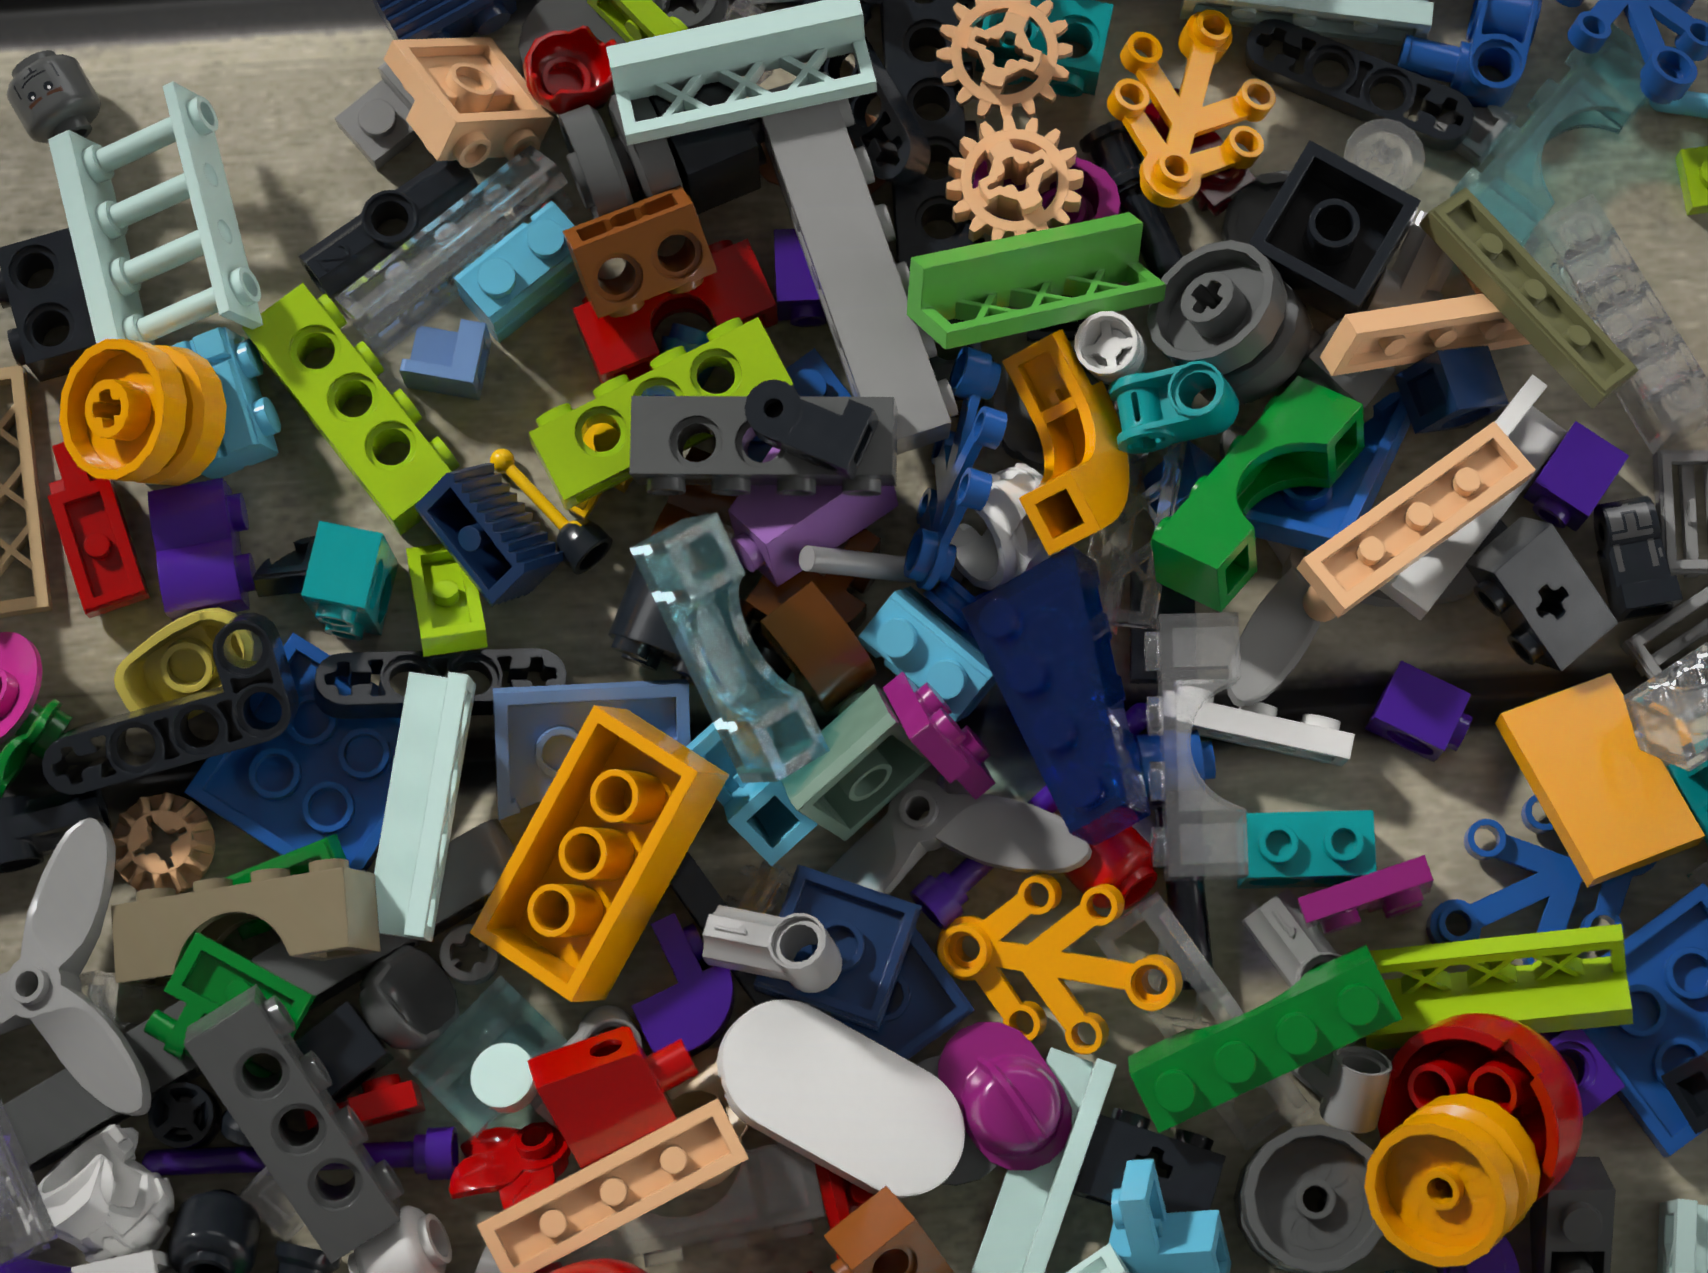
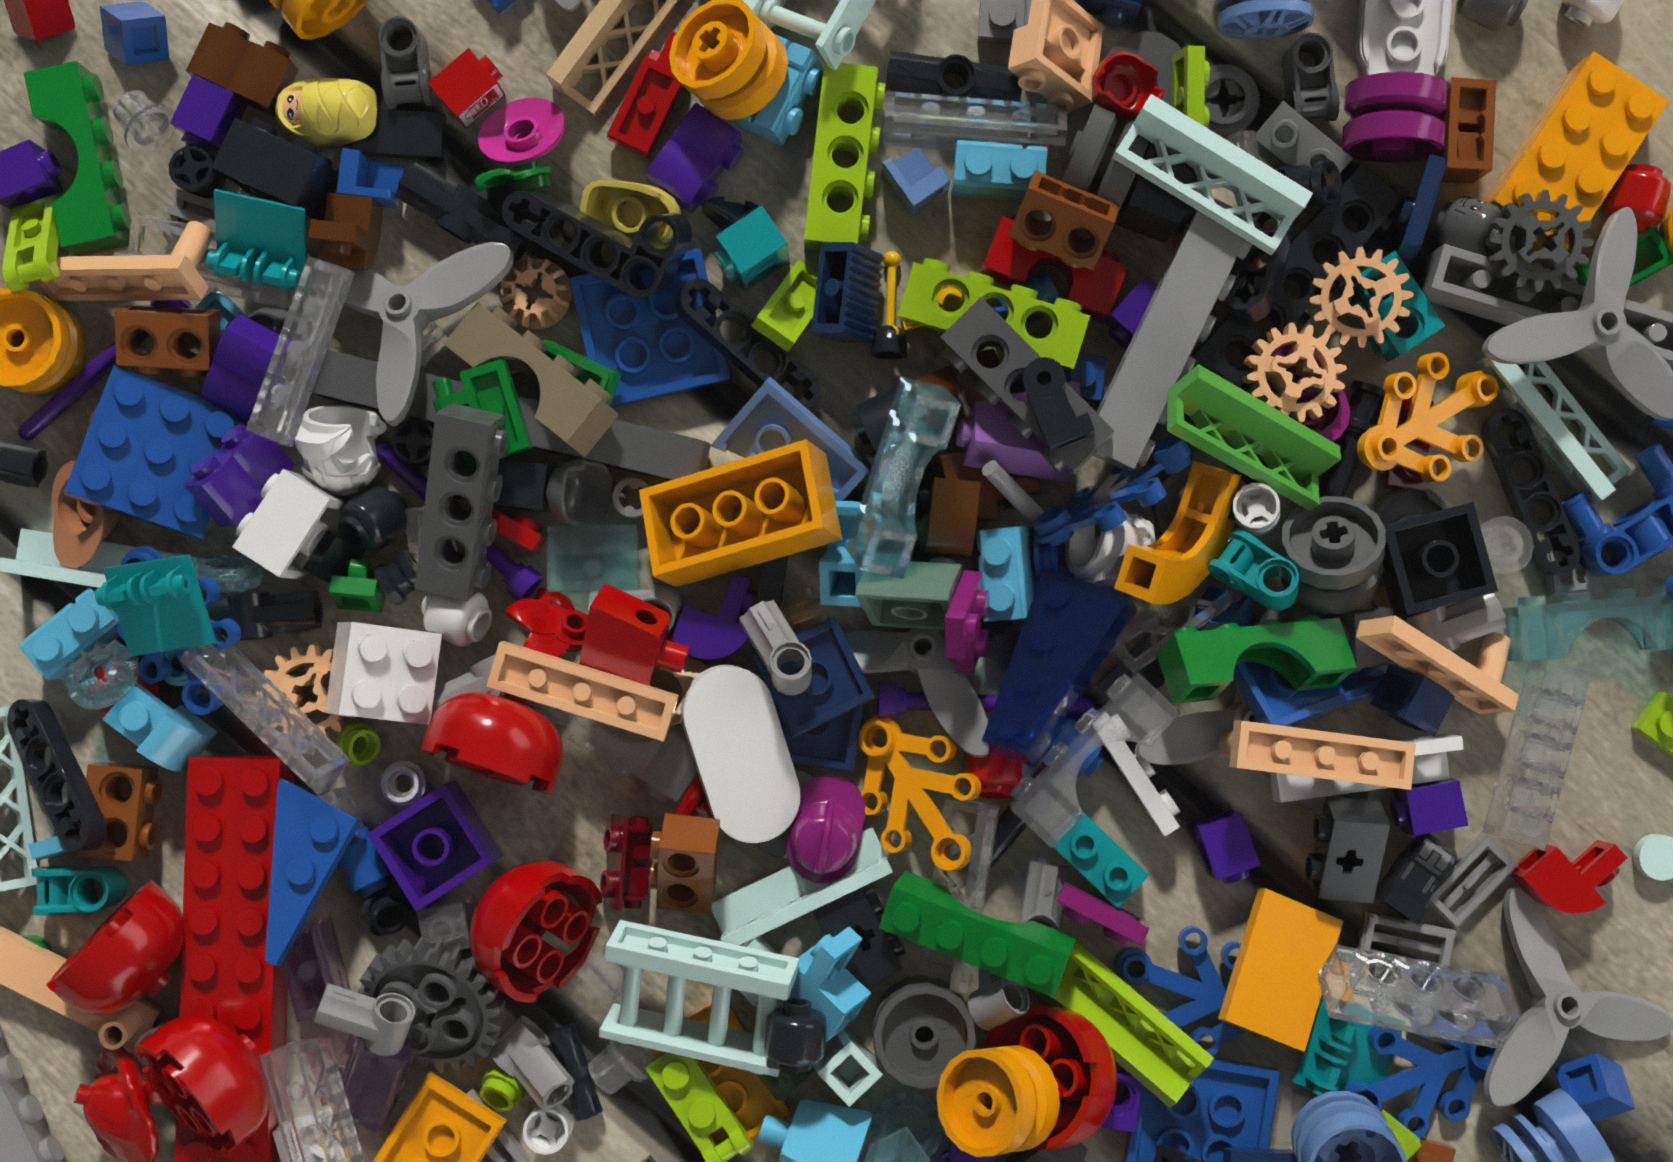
camera: 45 degrees right, 10 degrees up
(422, 803) = (676, 402): light aqua fence -> none
(503, 1078) = (586, 577): light aqua tile -> none
(1528, 297) = (1501, 695): olive tile -> none

